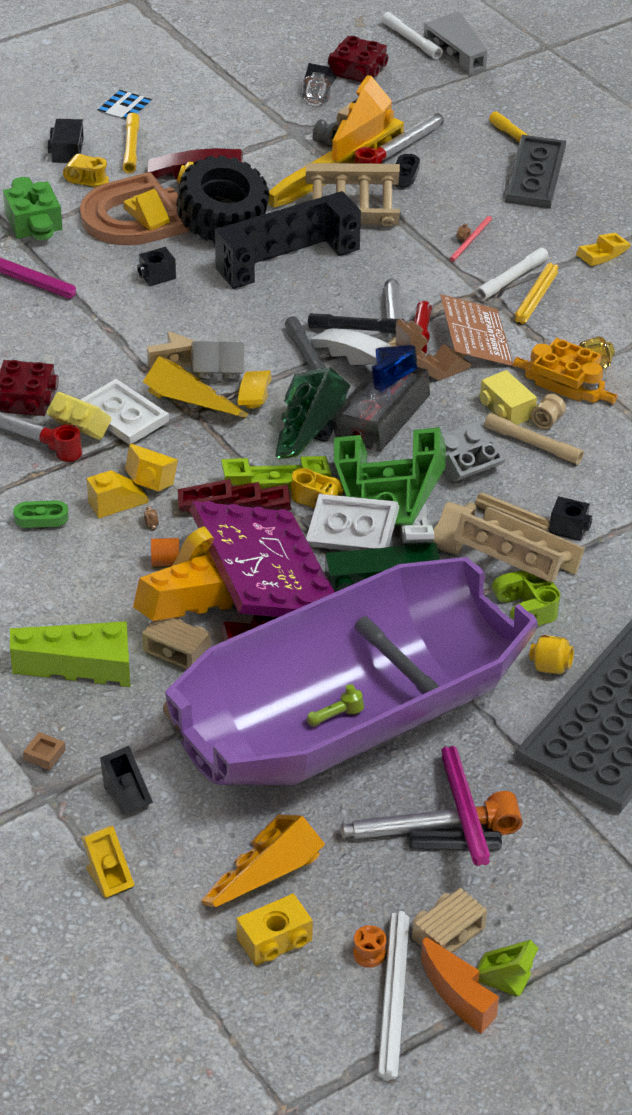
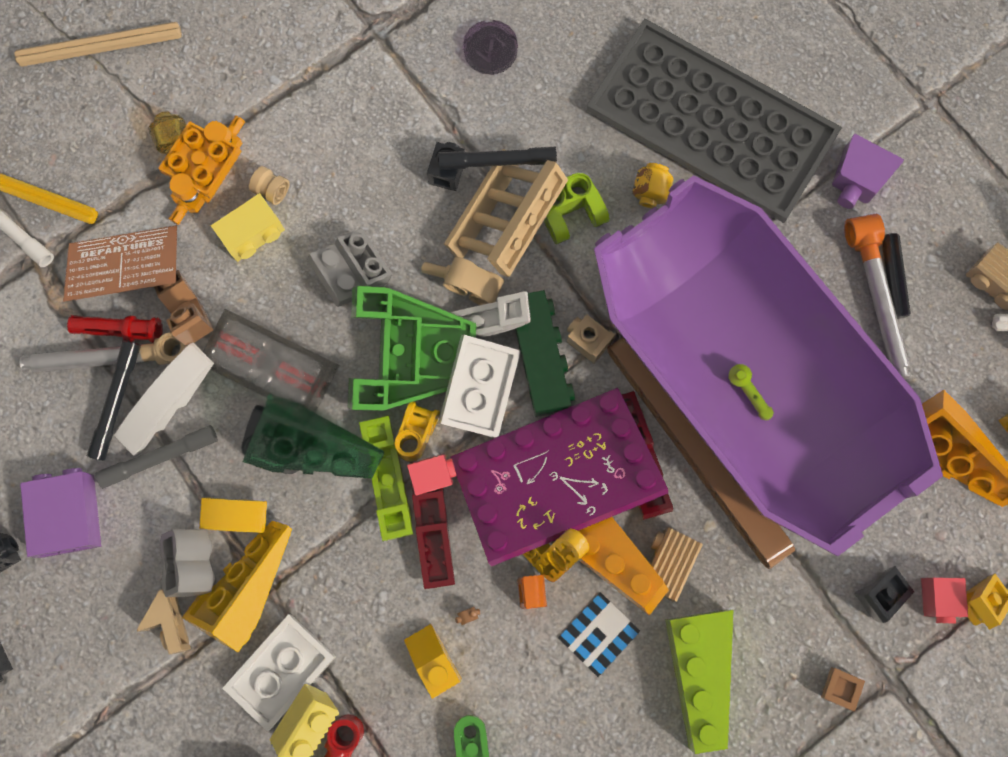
camera: 90 degrees left, 35 degrees up
(116, 601) = (599, 634): none -> sticker
(125, 826) = (944, 598): none -> coral brick
(150, 468) = (391, 626): yellow slope -> none
(265, 300) = (60, 513): none -> medium lavender brick
(275, 488) = (431, 473): none -> coral brick
(377, 638) = (682, 347): dark grey piece -> none
(393, 365) = (223, 341): clear blue slope -> none
(465, 806) = (894, 257): dark pink axle -> none
(484, 500) = (435, 224): tan axle -> none
(560, 449) = (294, 229): tan piece -> none
(571, 819) = (863, 171): none -> medium lavender torso
(574, 559) = (463, 159): none -> black piece

